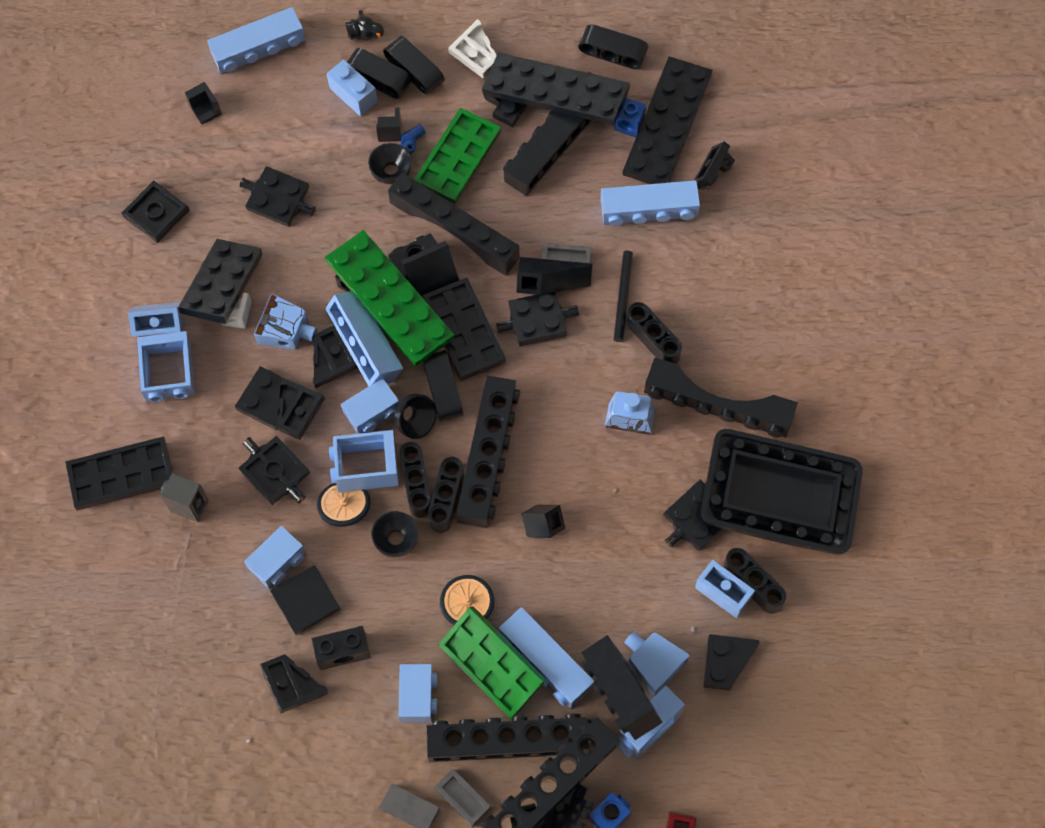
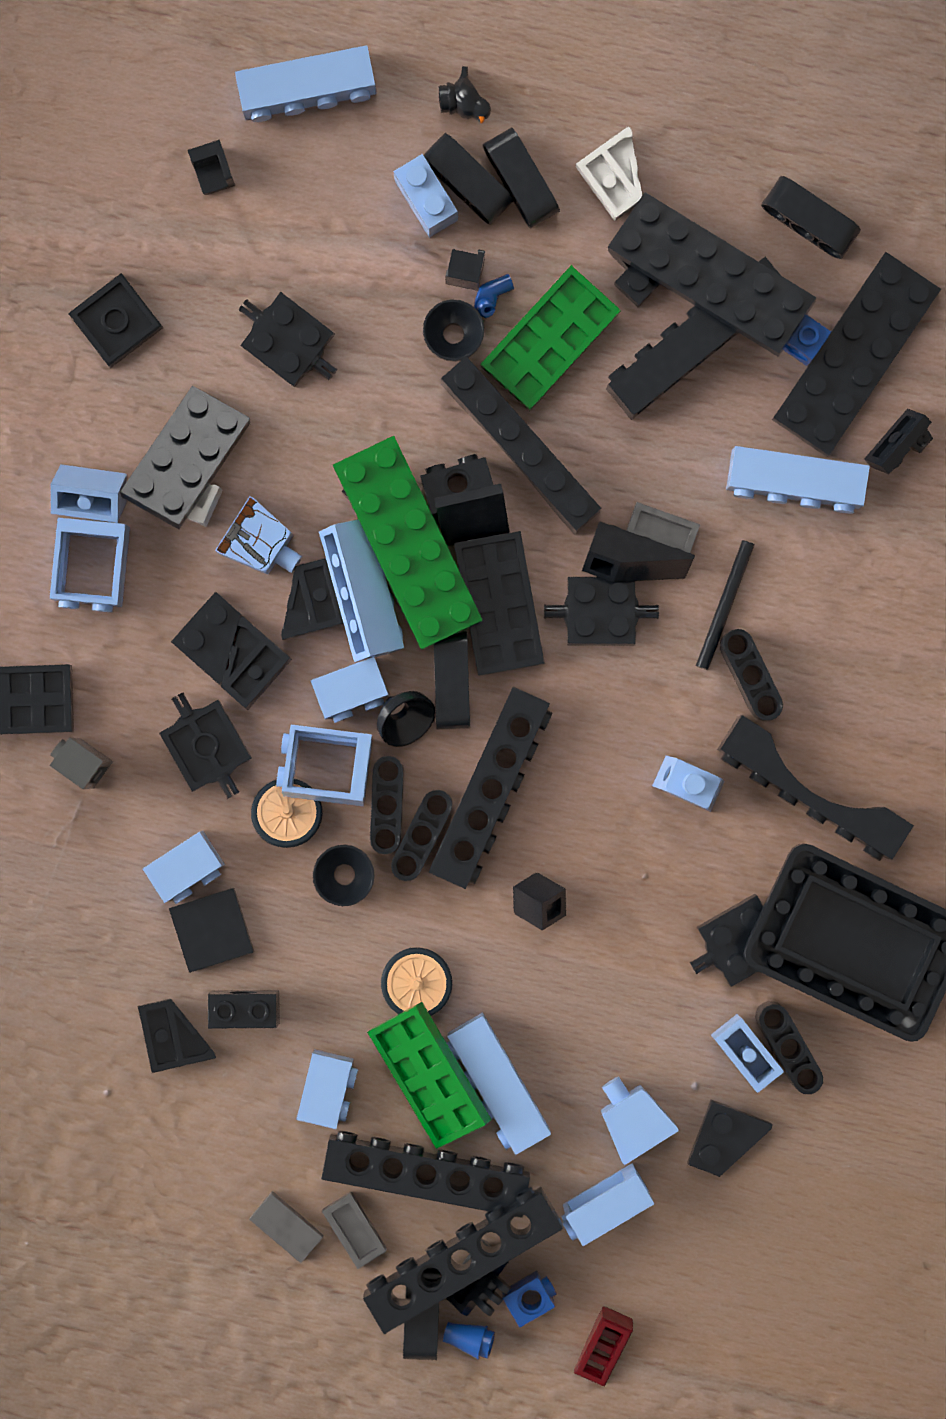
camera: 10 degrees right, 20 degrees up
(621, 687) = (580, 1167): black wedge -> none

